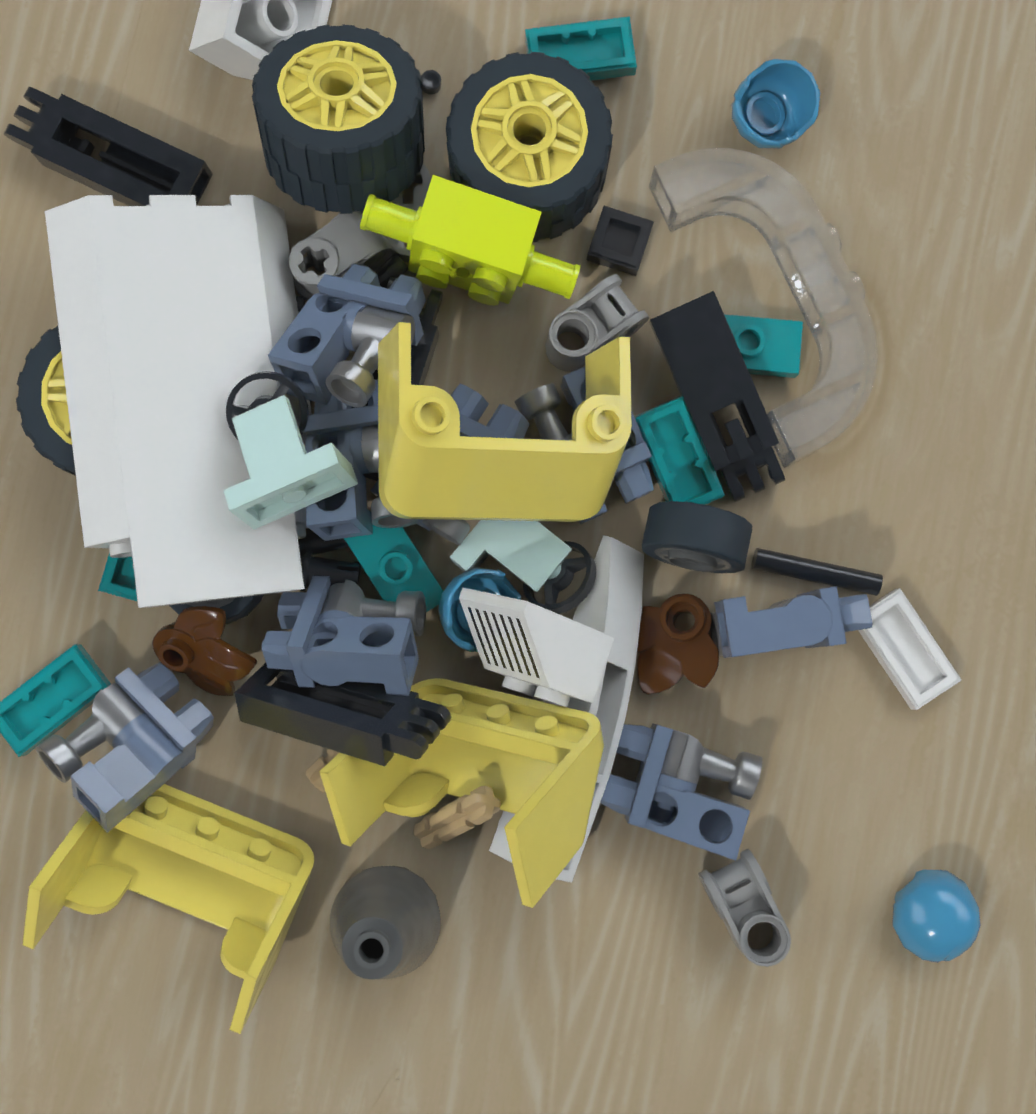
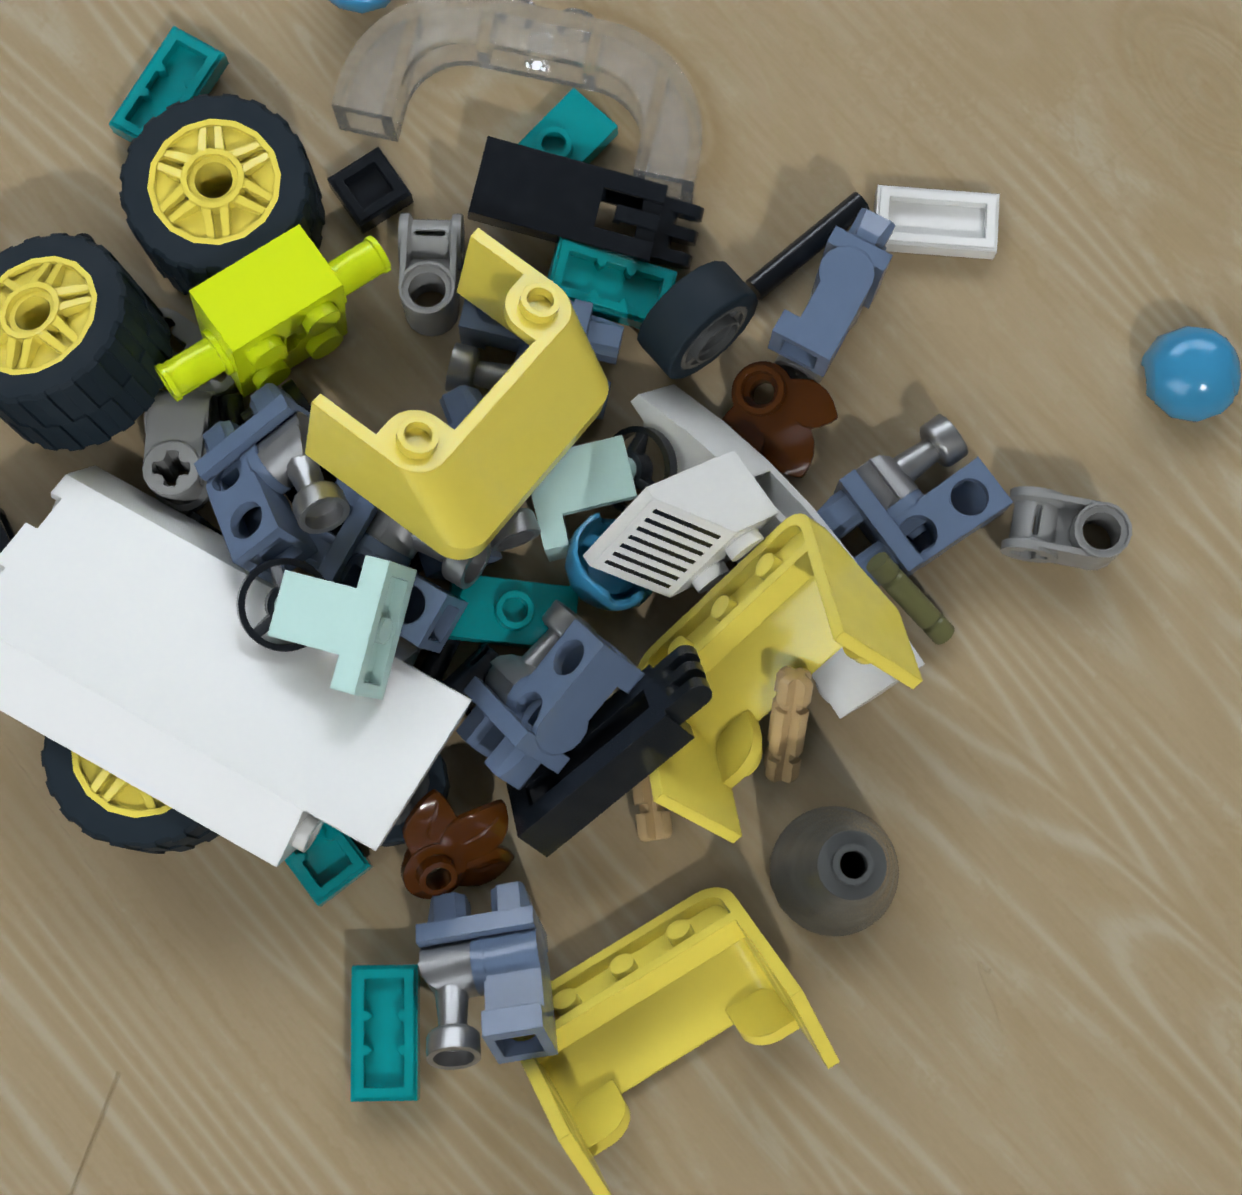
camera: 50 degrees left, 5 degrees down
(612, 835) = (910, 598): none -> olive wheel

